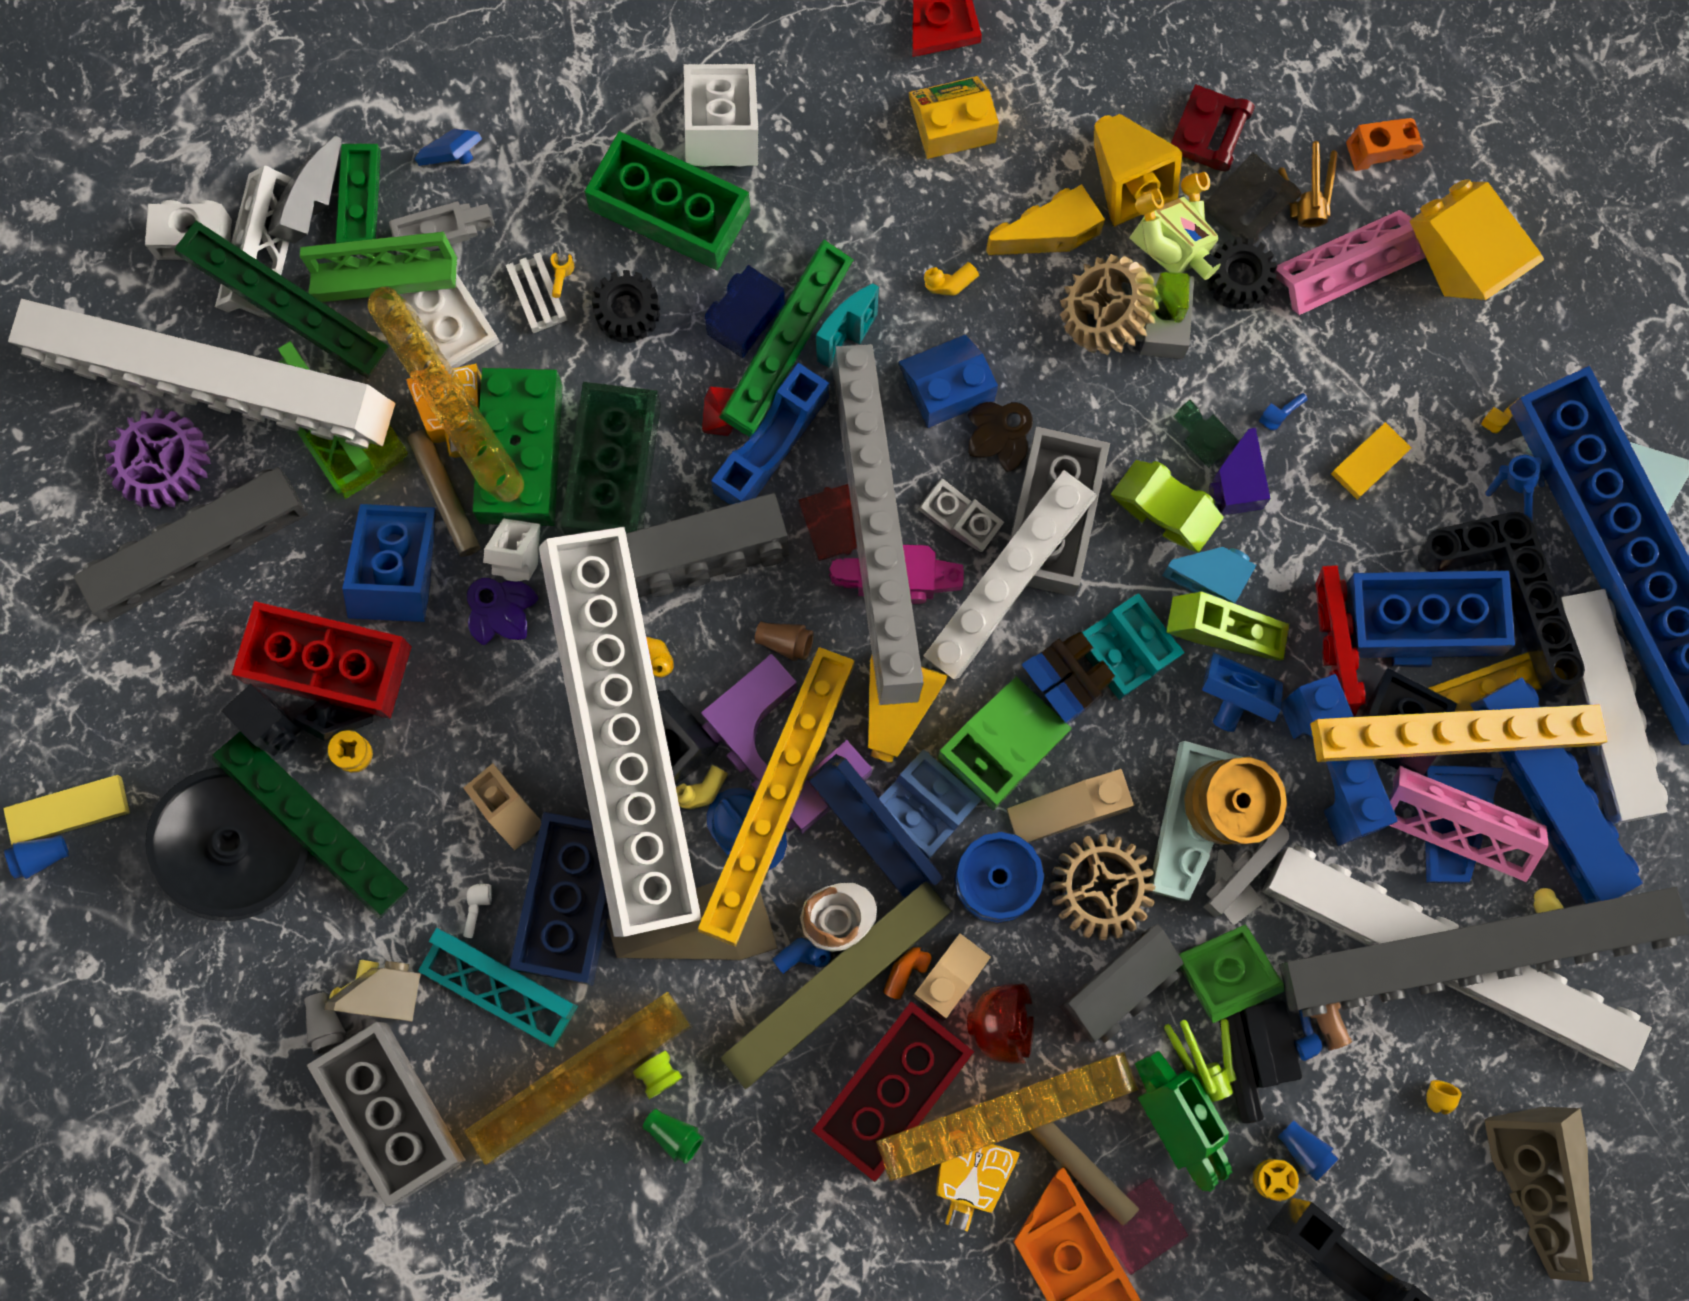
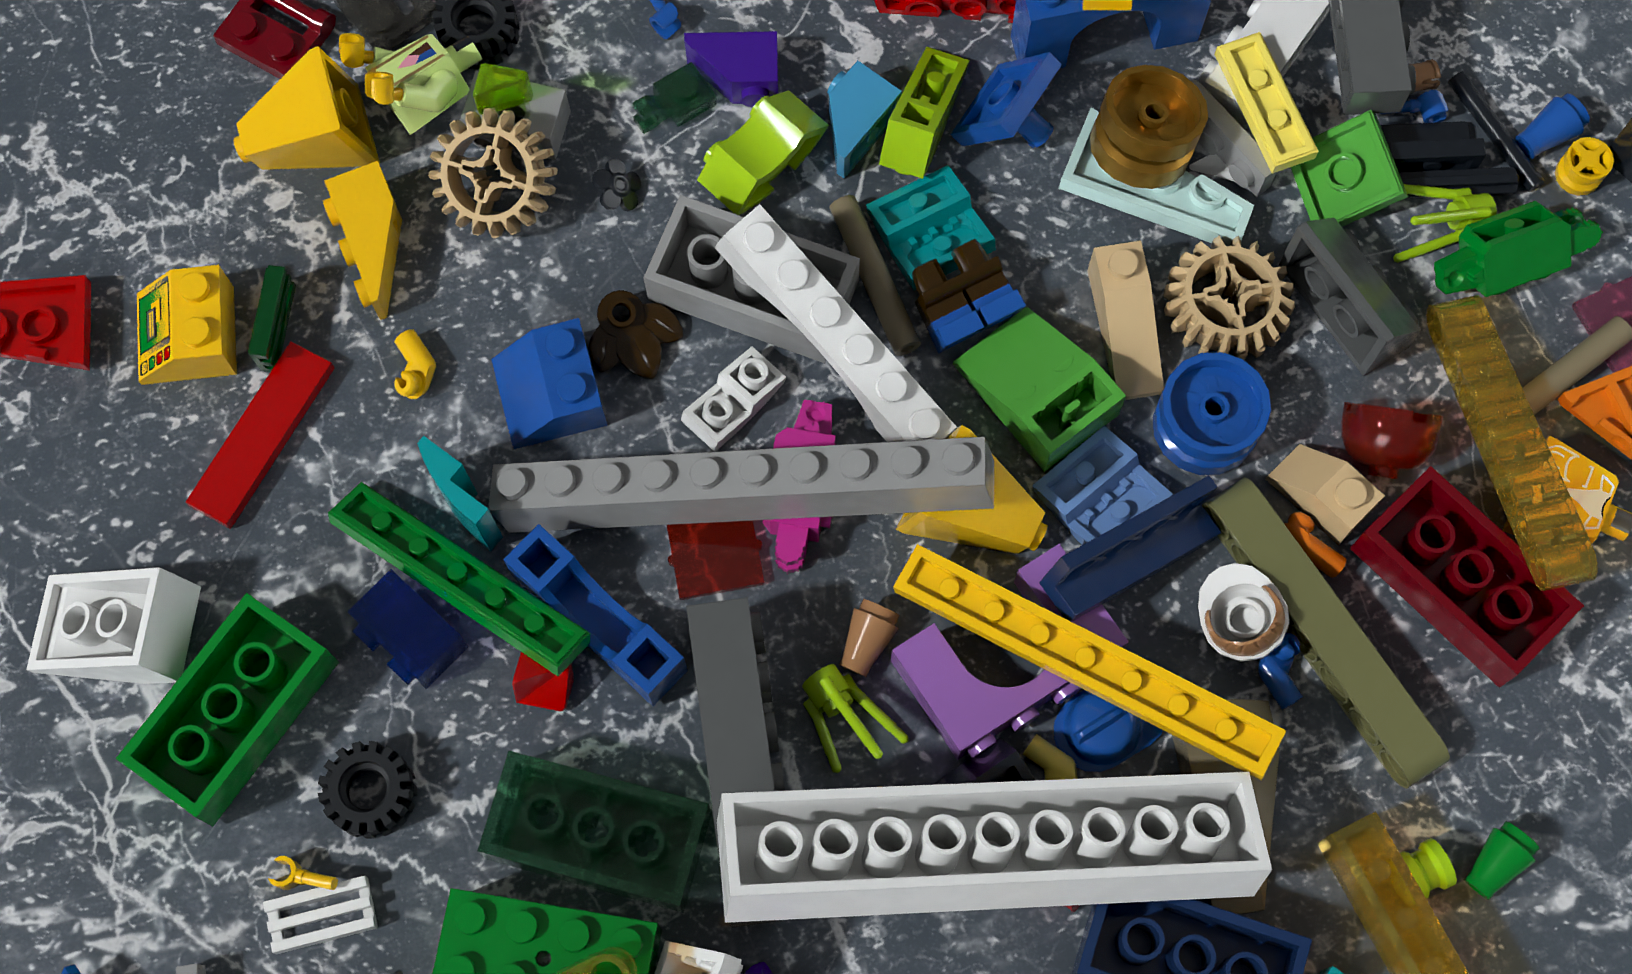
camera: 80 degrees left, 5 degrees down
(736, 617) = (832, 694): none -> lime plant
(880, 183) = (260, 435): none -> red tile
(969, 172) = (271, 318): none -> dark green tile
(1080, 607) = (875, 275): none -> dark tan piece
(1122, 402) = (618, 186): none -> black plant
(1276, 896) = (1266, 102): none -> light yellow tile
(1297, 1103) = (1495, 131): none -> black bar

